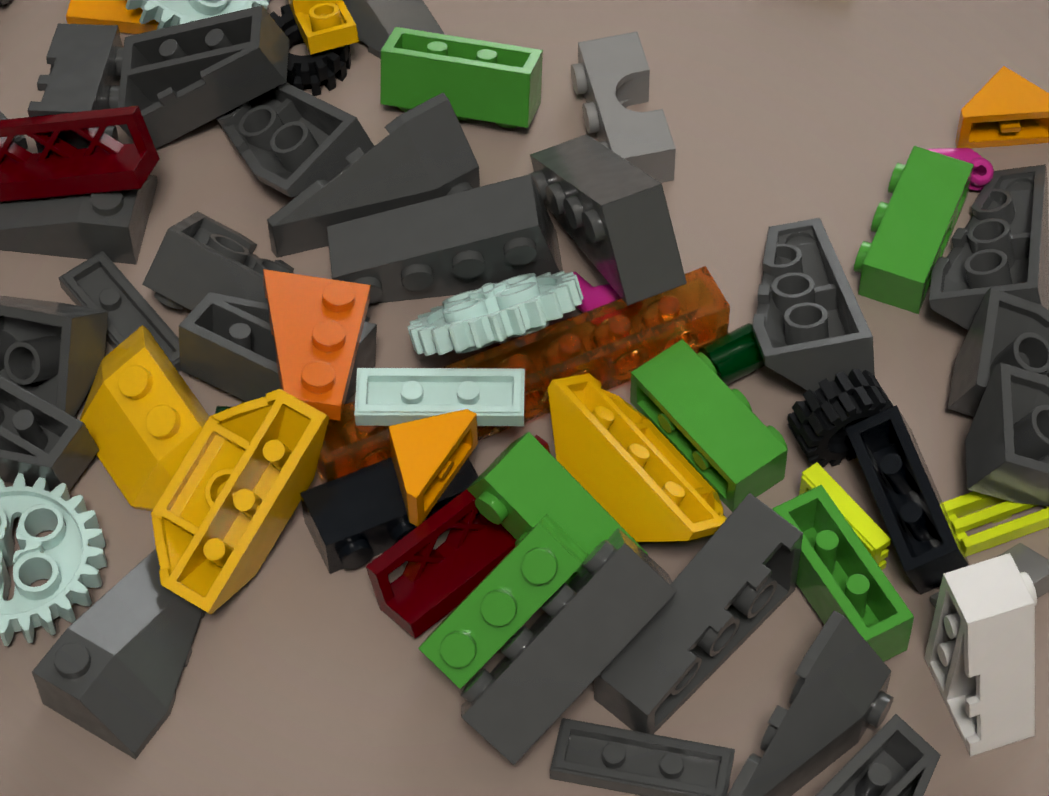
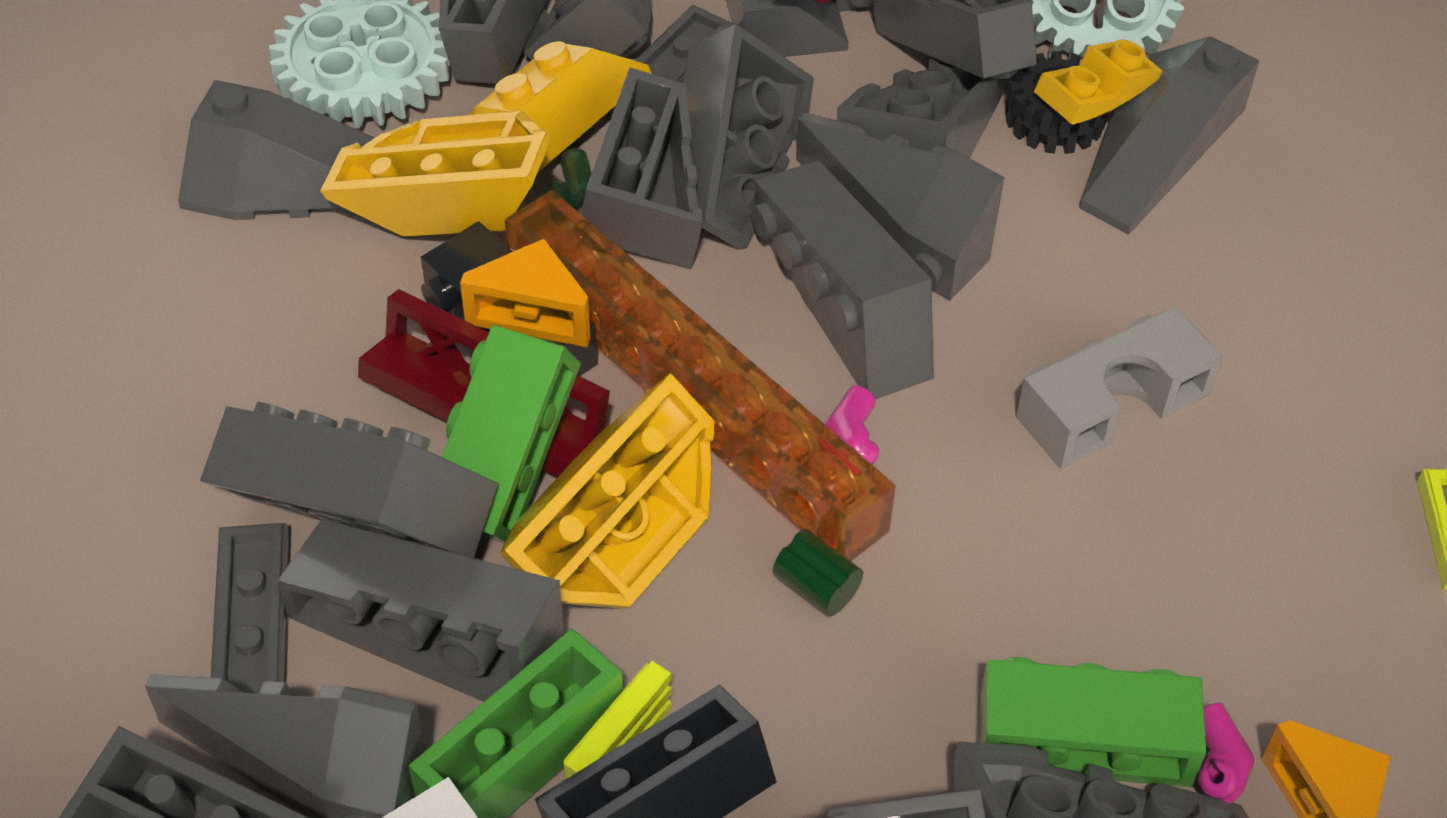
camera: 70 degrees right, 5 degrees down
(316, 335) = (648, 169): orange wing -> none
(412, 394) = (616, 286): light aqua tile -> none
(477, 76) = (1077, 225): bright green brick -> none
(495, 313) = (752, 313): light aqua gear -> none
(503, 601) = (381, 396): bright green brick -> none
(612, 215) = (921, 373): dark grey wedge -> none
(709, 423) = (705, 568): bright green brick -> none
(806, 309) = (887, 637): dark grey wedge -> none
(825, 414) = (756, 678): black tyre -> none

